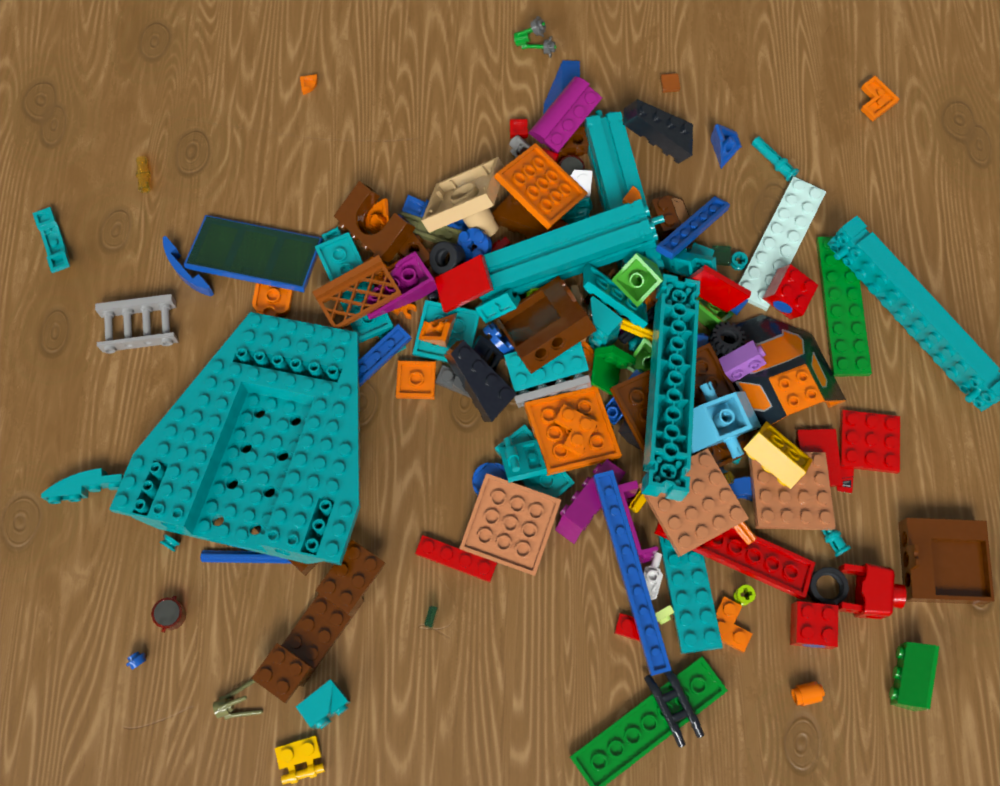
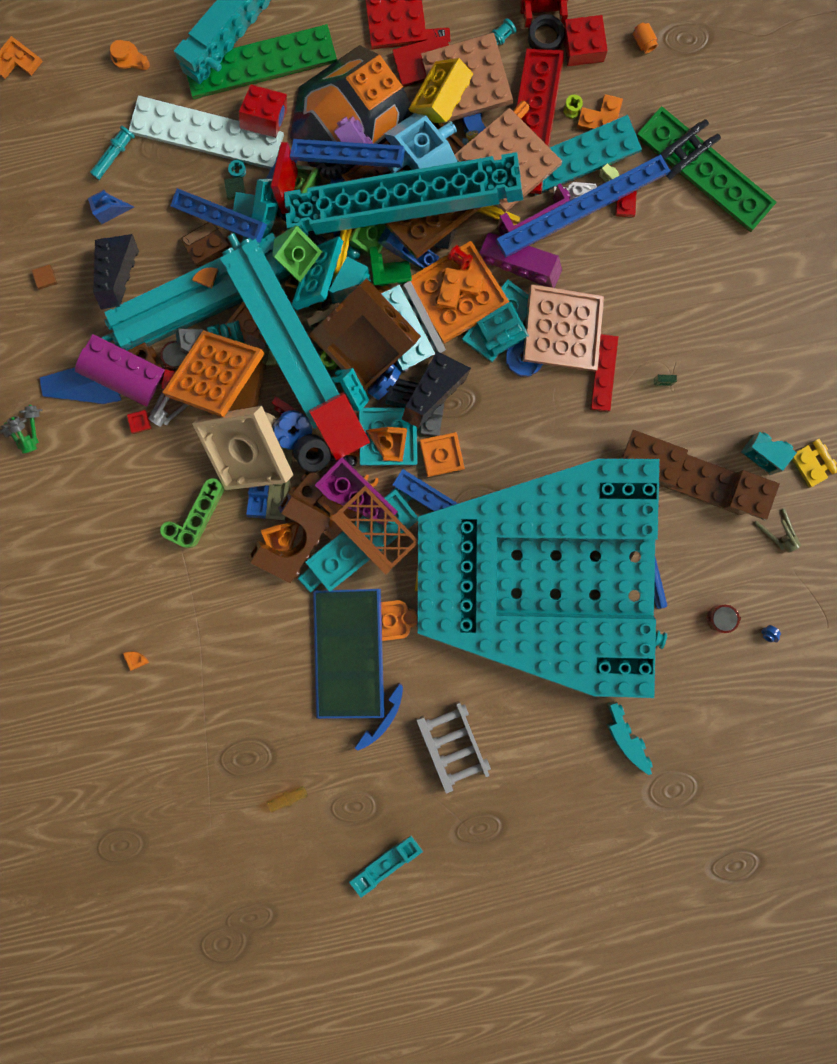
camera: 105 degrees left, 15 degrees up
(436, 171) = (196, 511): none -> bright green beam
(604, 436) = (464, 262): none -> red bush
(727, 348) = (347, 153): none -> blue plate
(866, 191) = (128, 56): none -> orange piece

